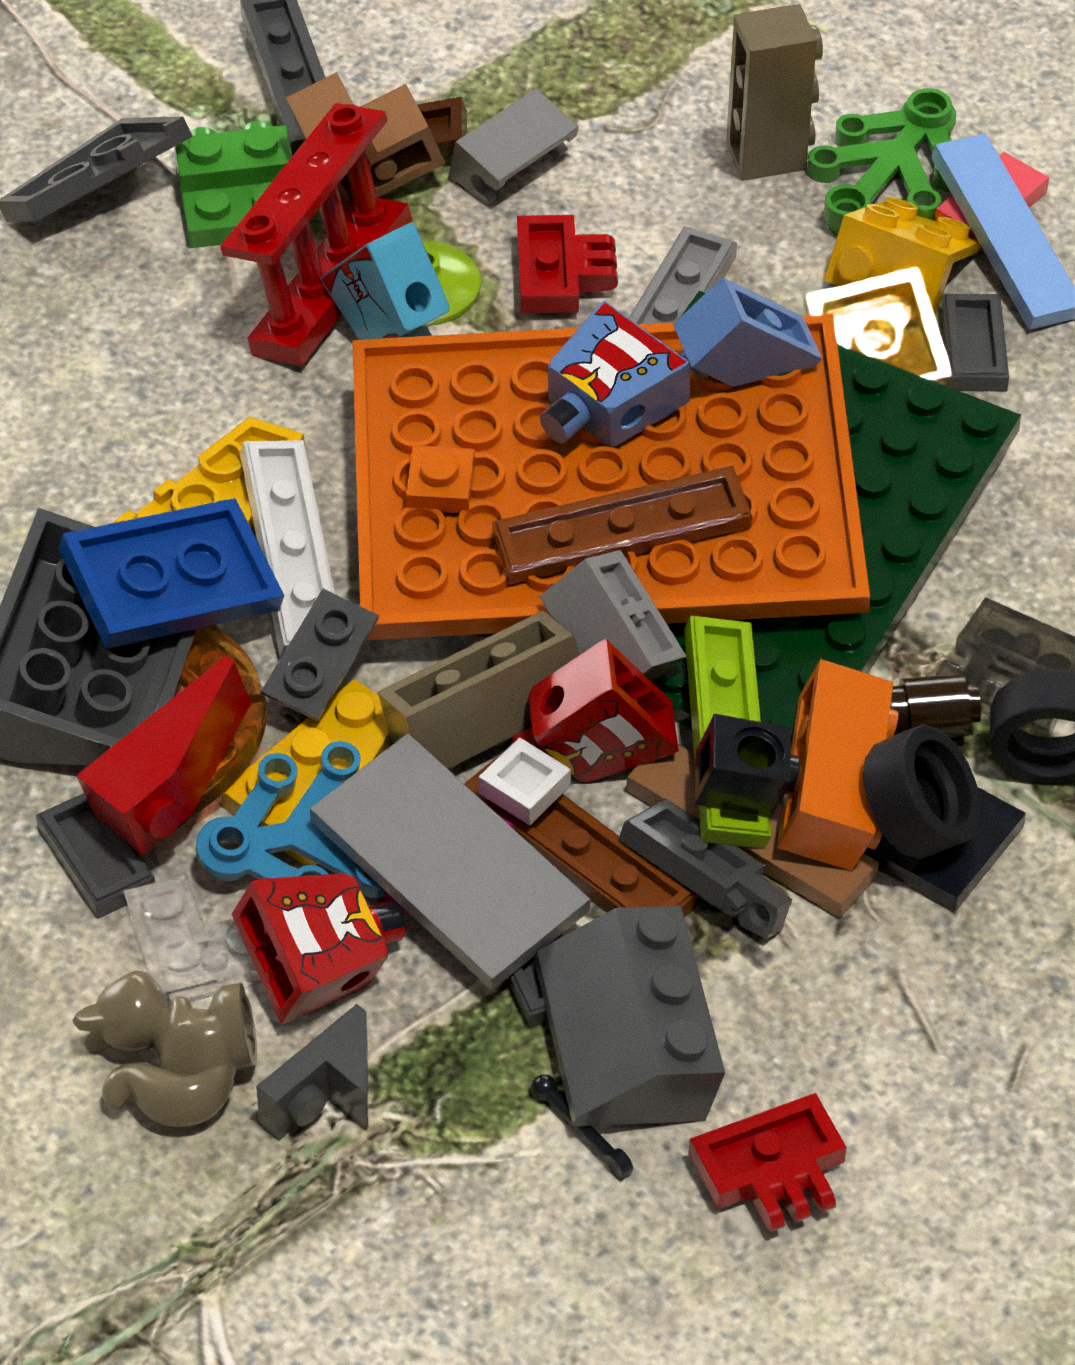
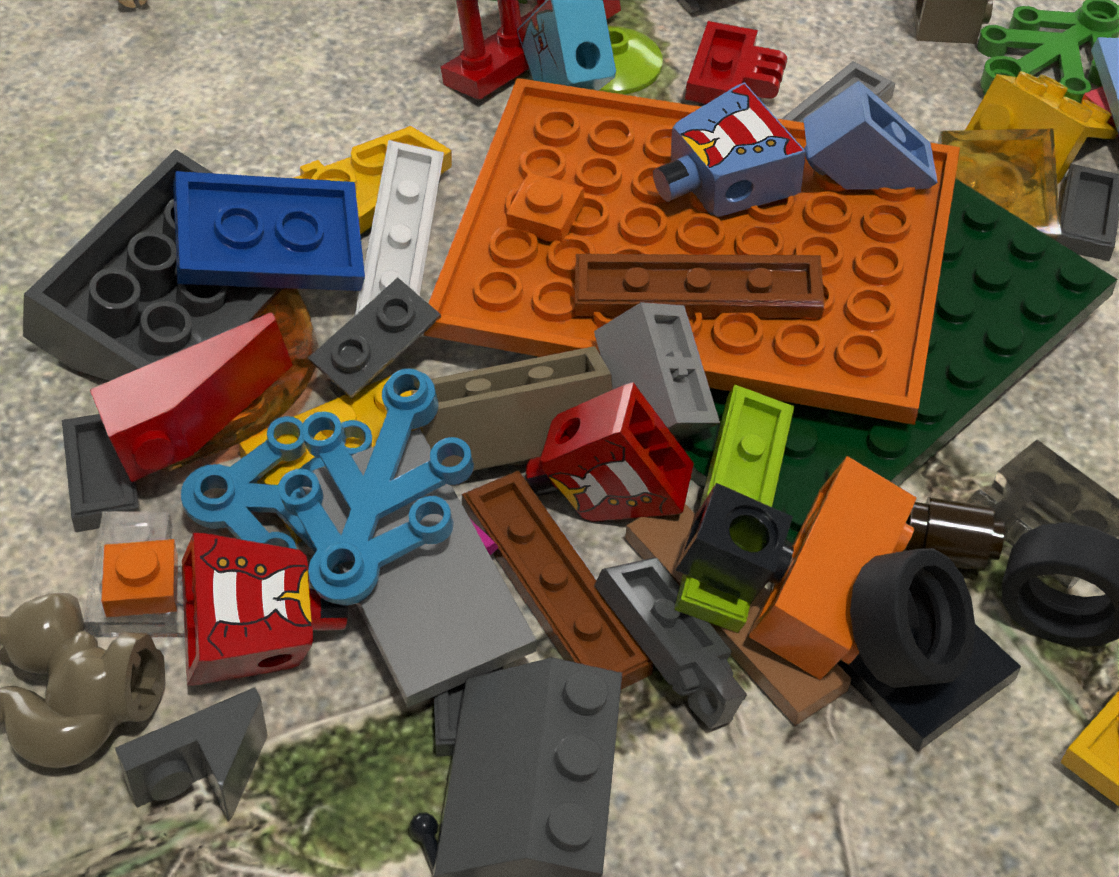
camera: 15 degrees right, 0 degrees up
(200, 939) = (140, 578): none -> orange plate
(396, 804) = (375, 493): none -> dark azure plant
(524, 781) = (519, 504): white plate -> none

